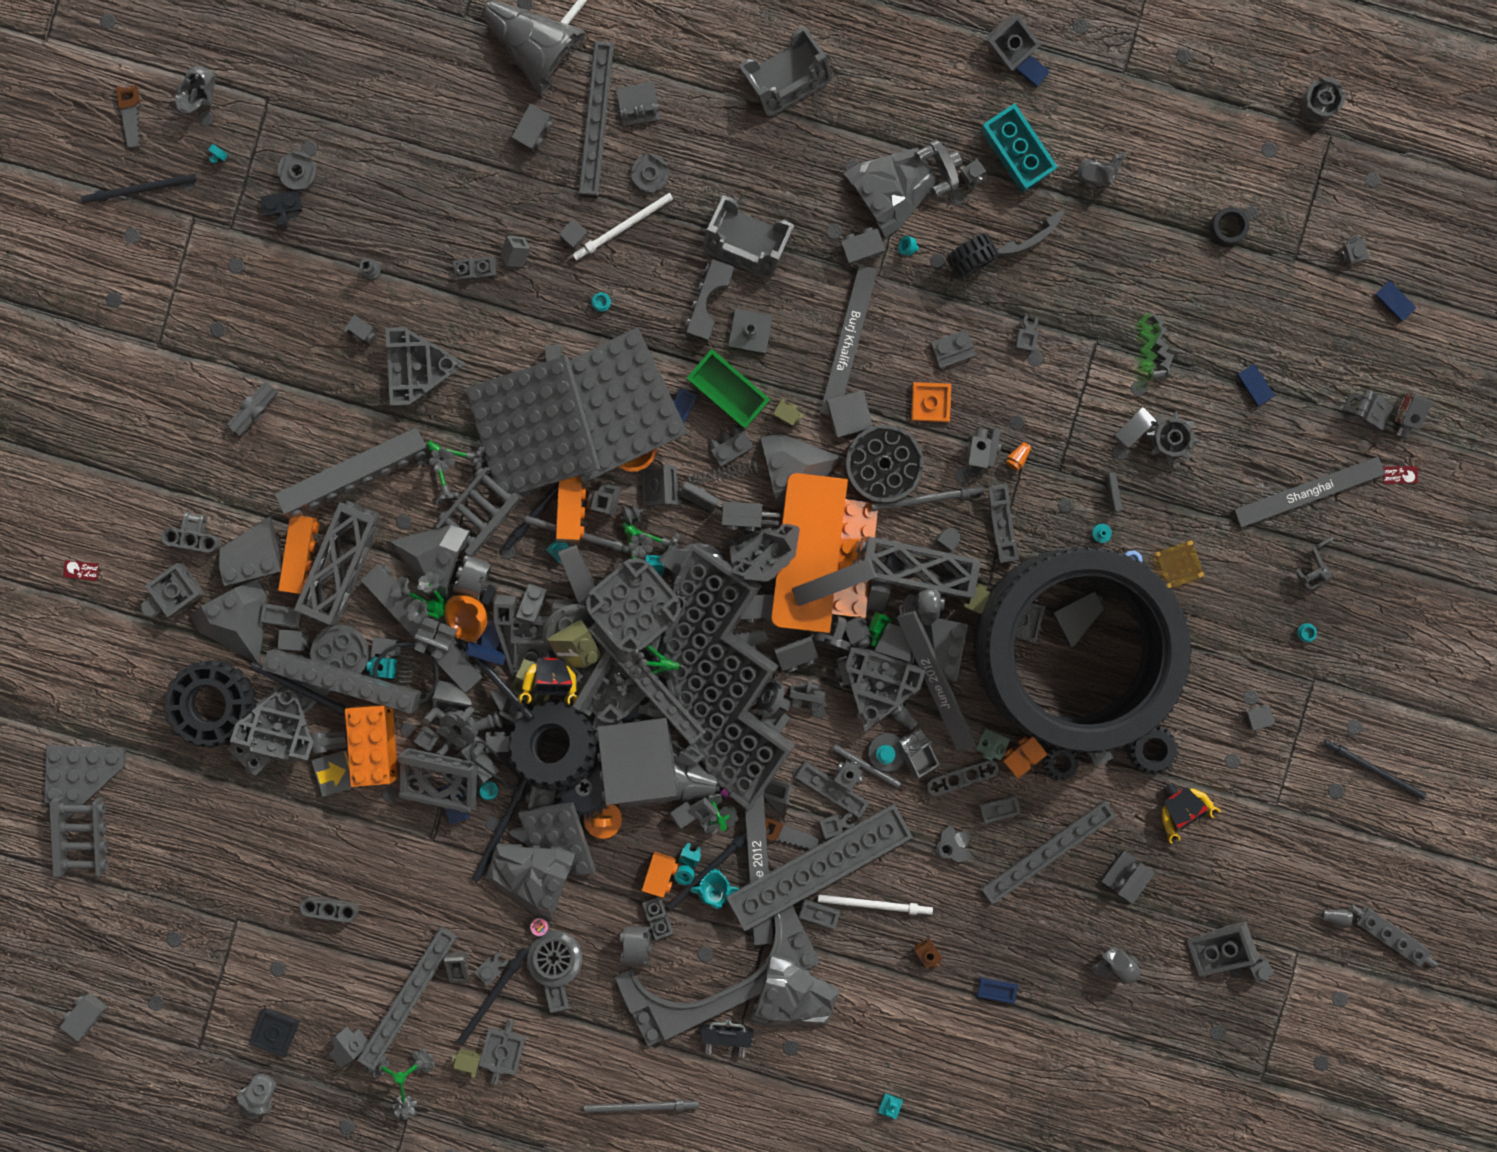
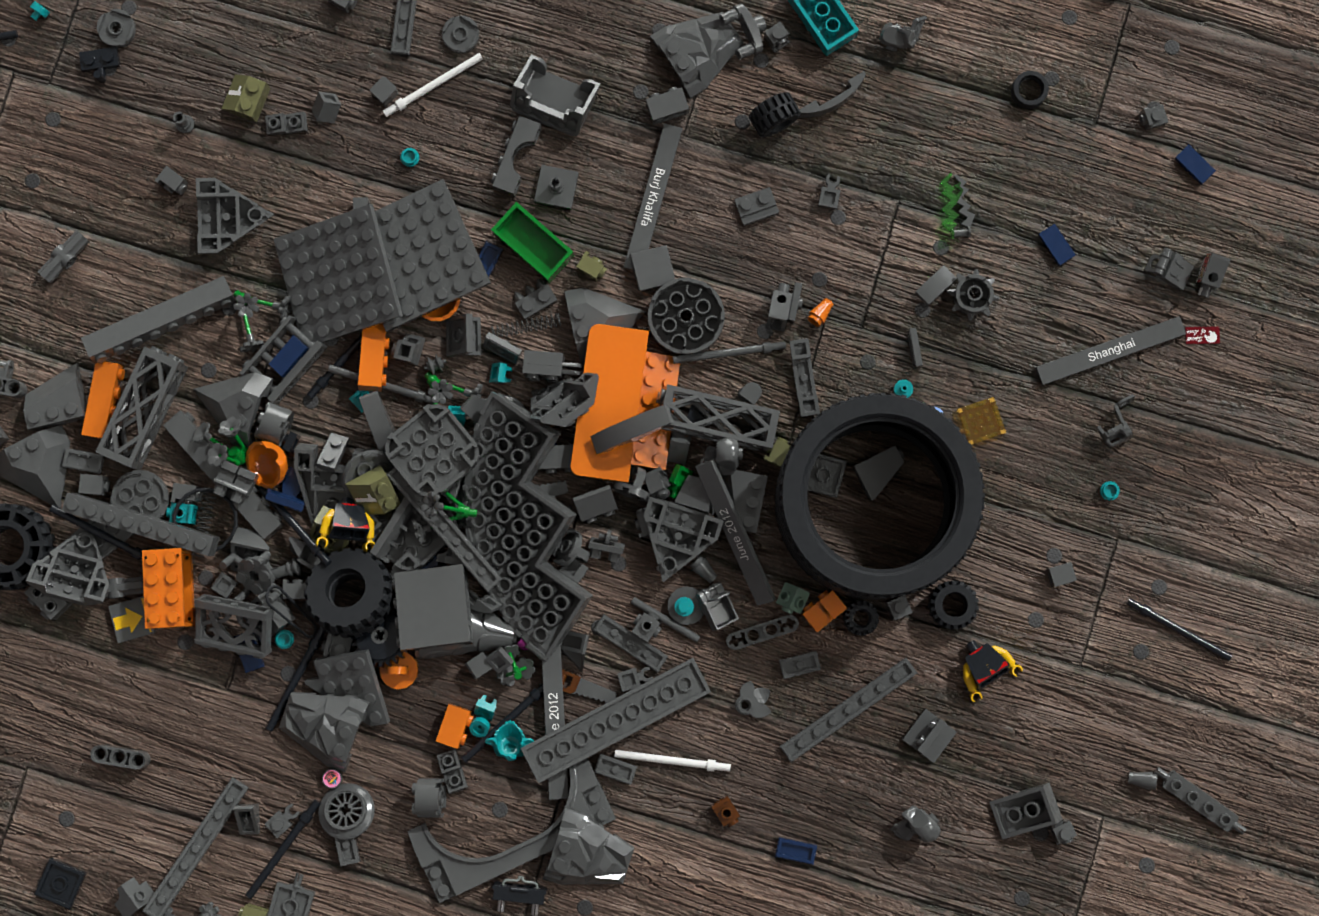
camera: 10 degrees right, 5 degrees down
(432, 241) = (246, 97): none -> olive slope
(485, 509) = (288, 356): none -> dark blue tile
(696, 522) = (498, 373): none -> teal tile
(907, 246) = (712, 106): teal tile -> none
(931, 402) = (734, 258): orange tile -> none

